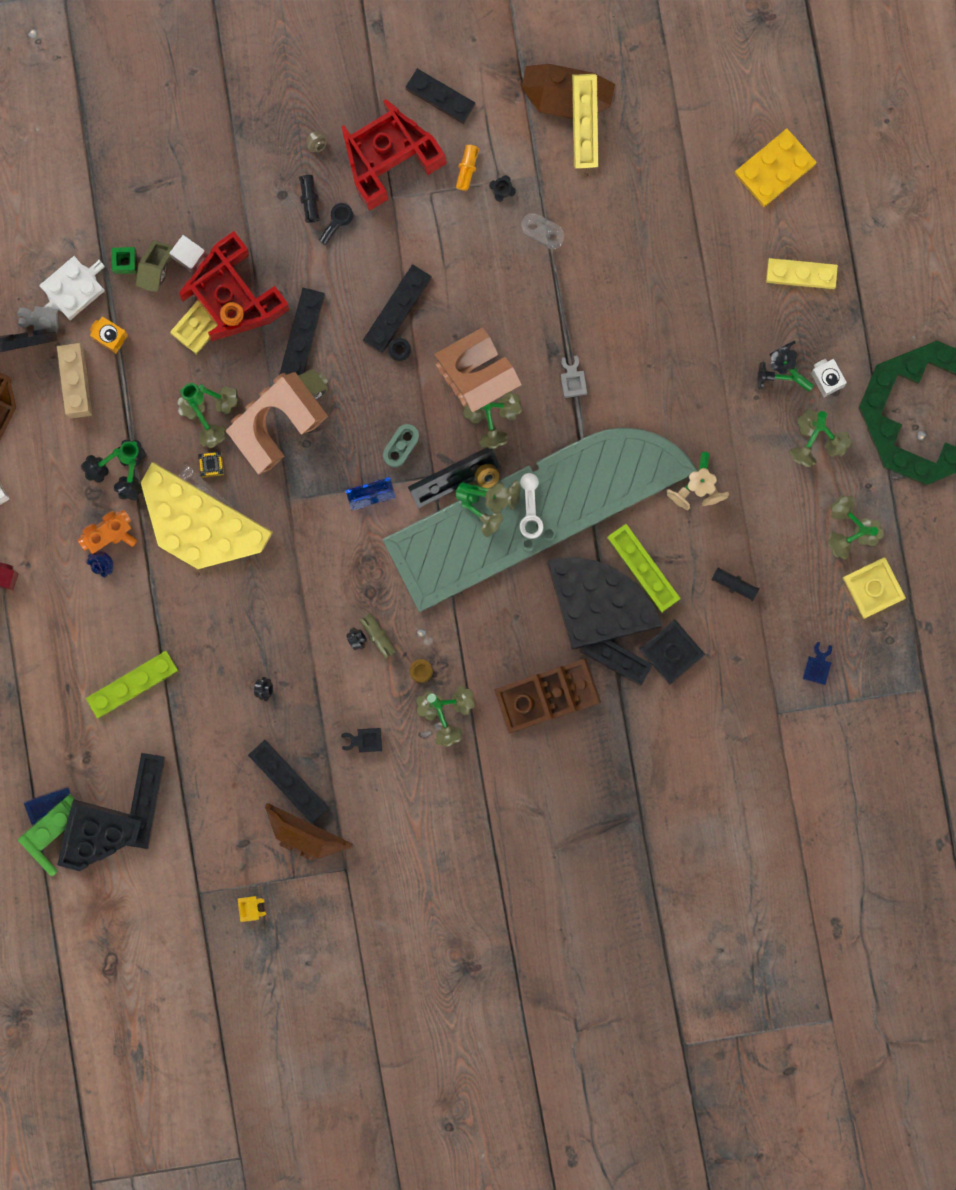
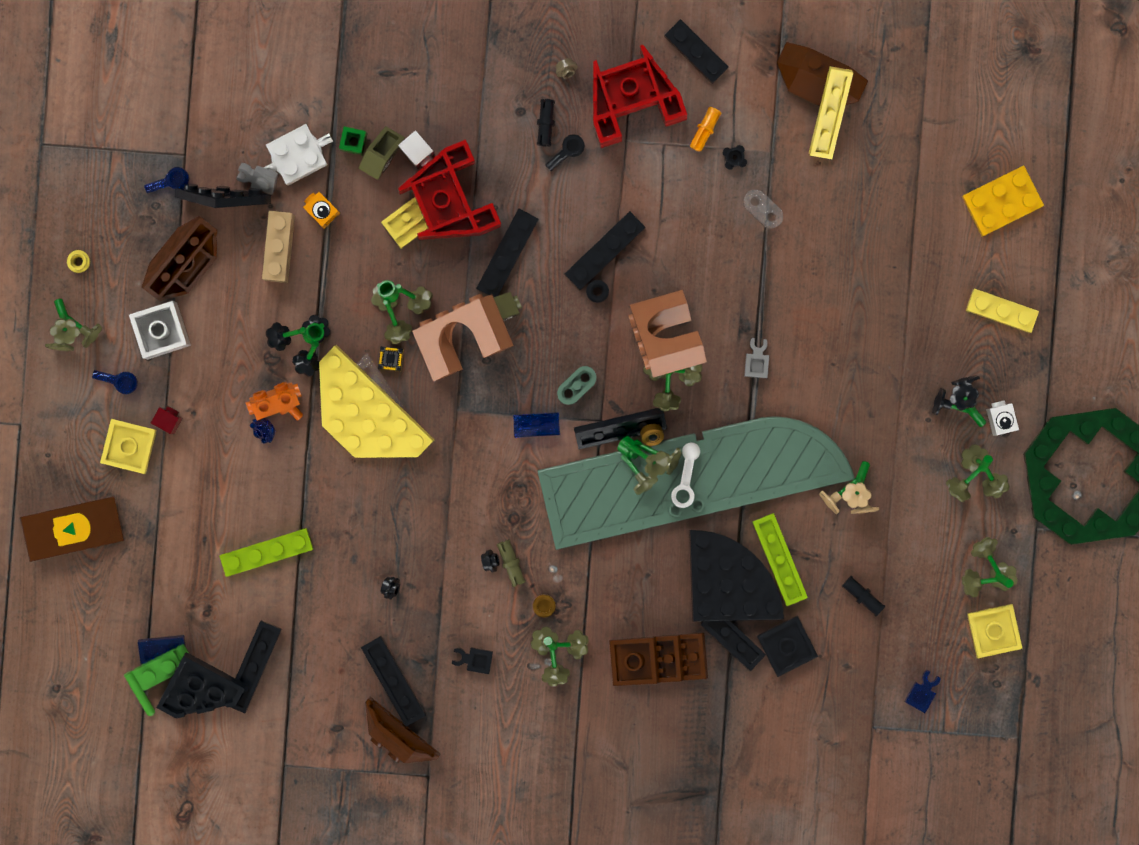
camera: 10 degrees right, 5 degrees up
(231, 307) = (444, 214): orange plate -> none
(248, 908) = (327, 793): yellow tile -> none

